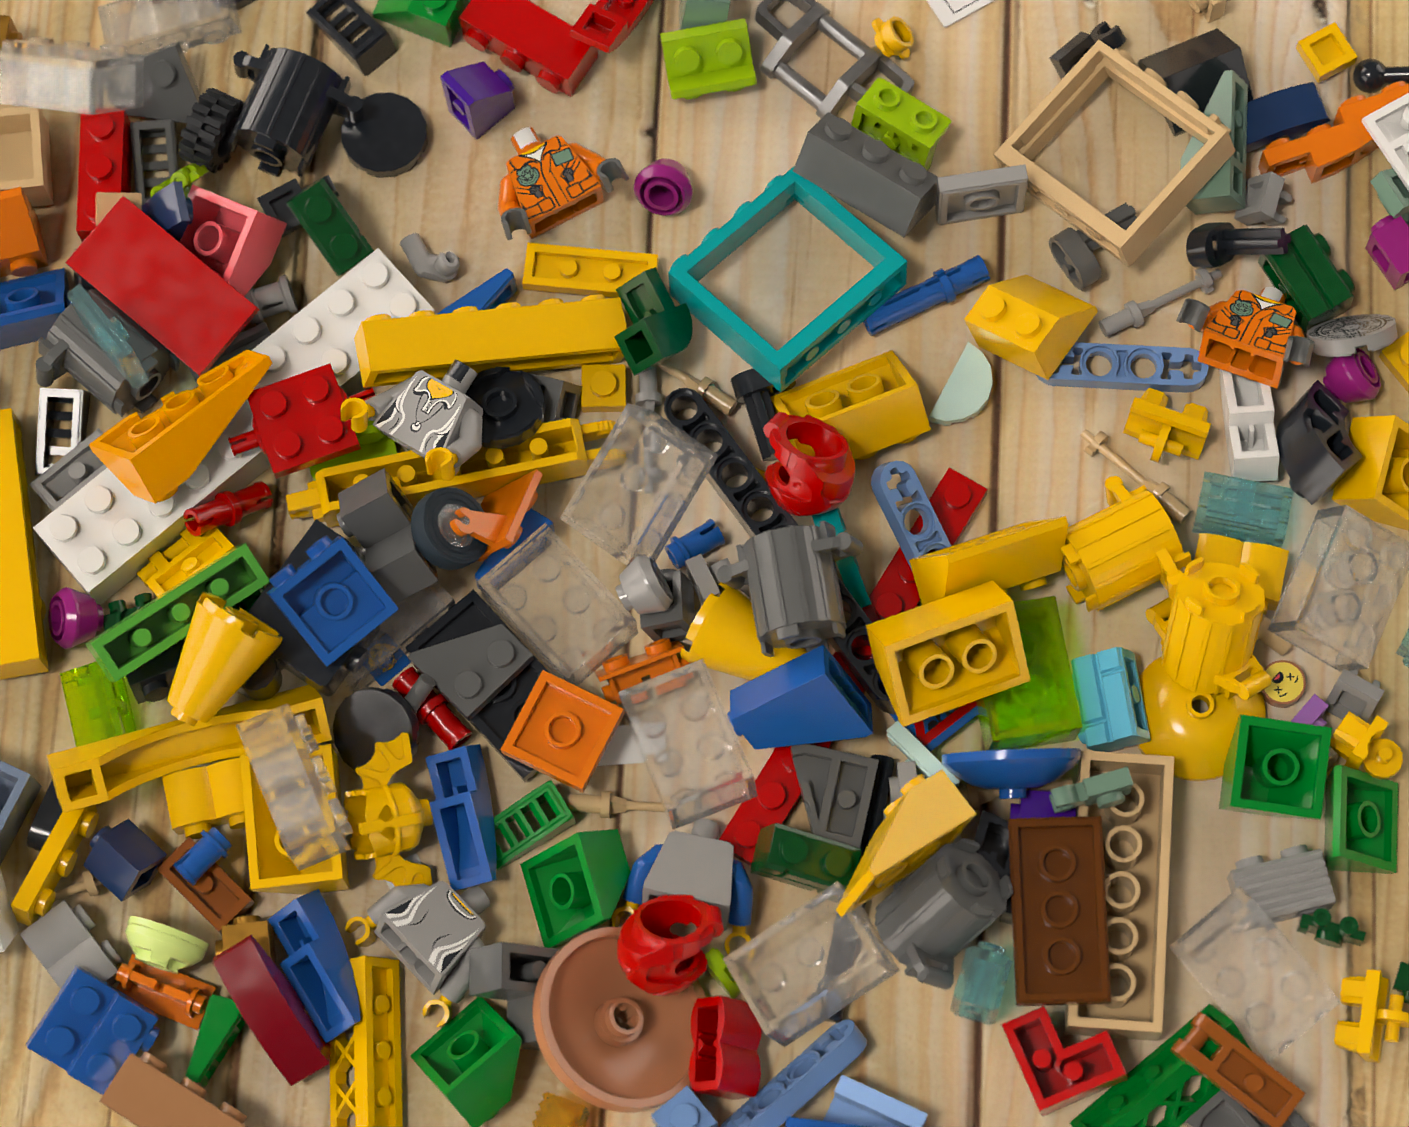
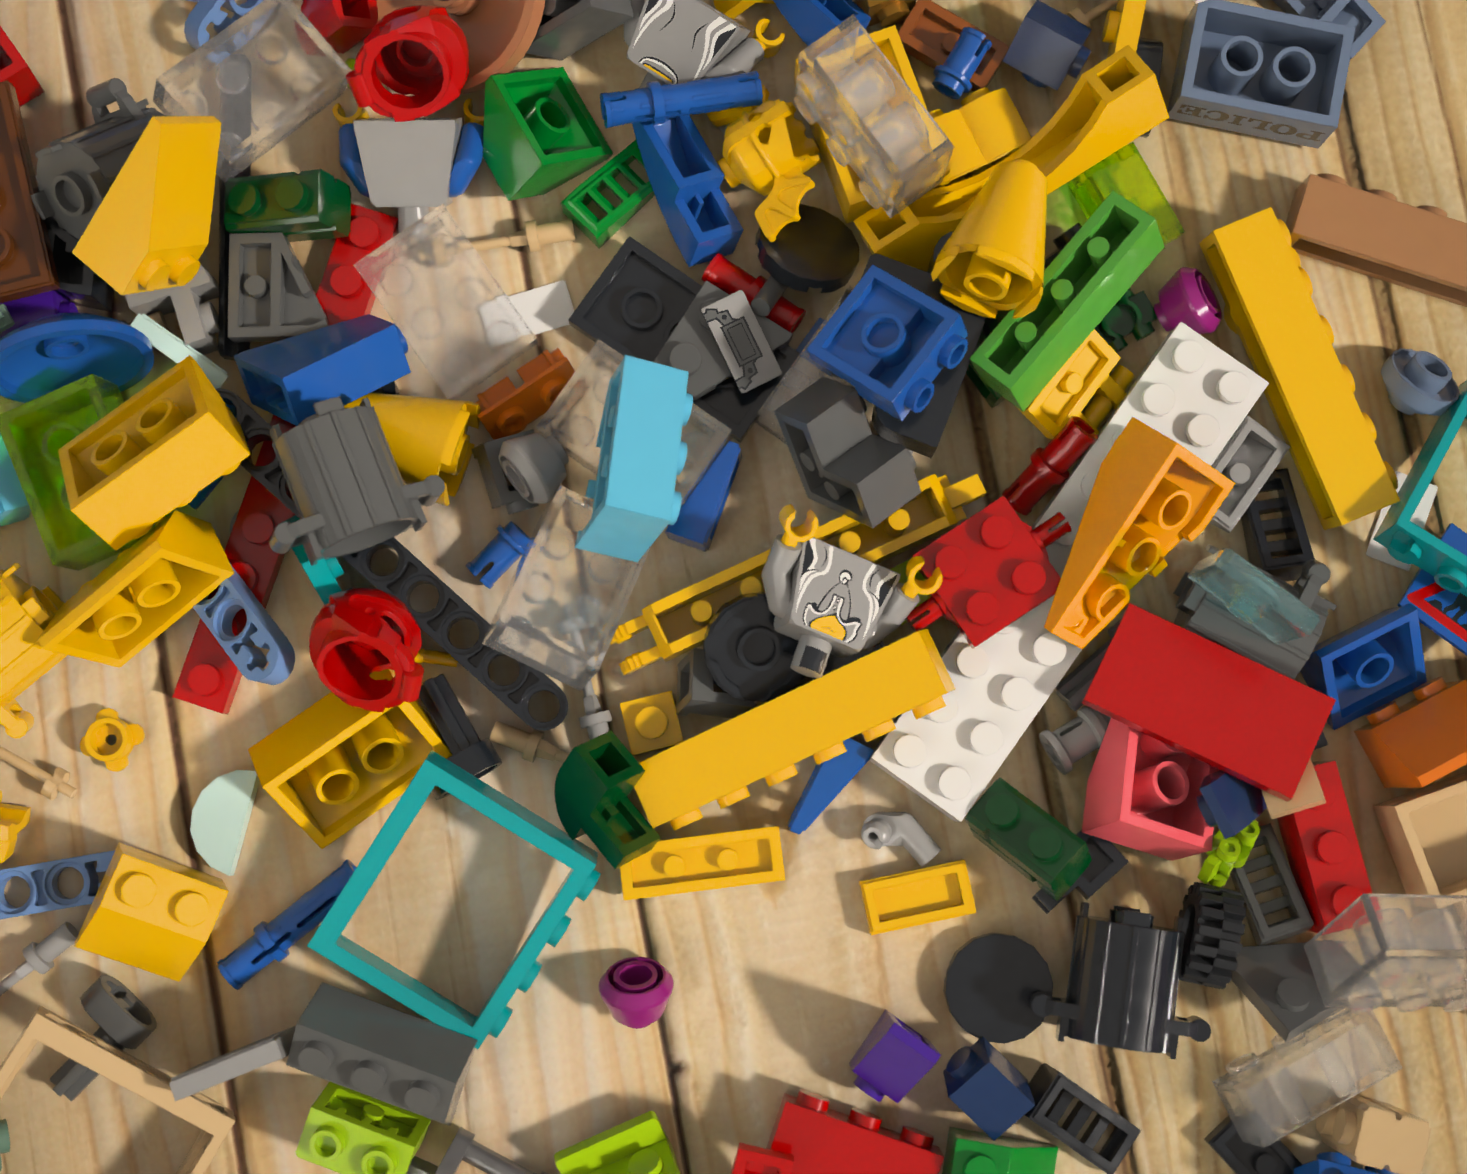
camera: 160 degrees right, 10 degrees up
(412, 60) = (987, 1087): none -> dark blue brick
(428, 213) = (917, 897): none -> yellow tile
(450, 656) = (741, 341): none -> sticker
(458, 531) = (732, 499): plate -> none
(464, 869) = (672, 100): none -> blue pin
(551, 183) = (776, 964): orange torso -> none
(554, 558) = (637, 459): none -> medium azure wedge
(562, 731) = (593, 288): orange plate -> none
(704, 578) = (472, 512): light grey tile -> none
(981, 983) = (53, 100): clear light blue brick -> none
(1044, 455) = (96, 739): none -> yellow plate

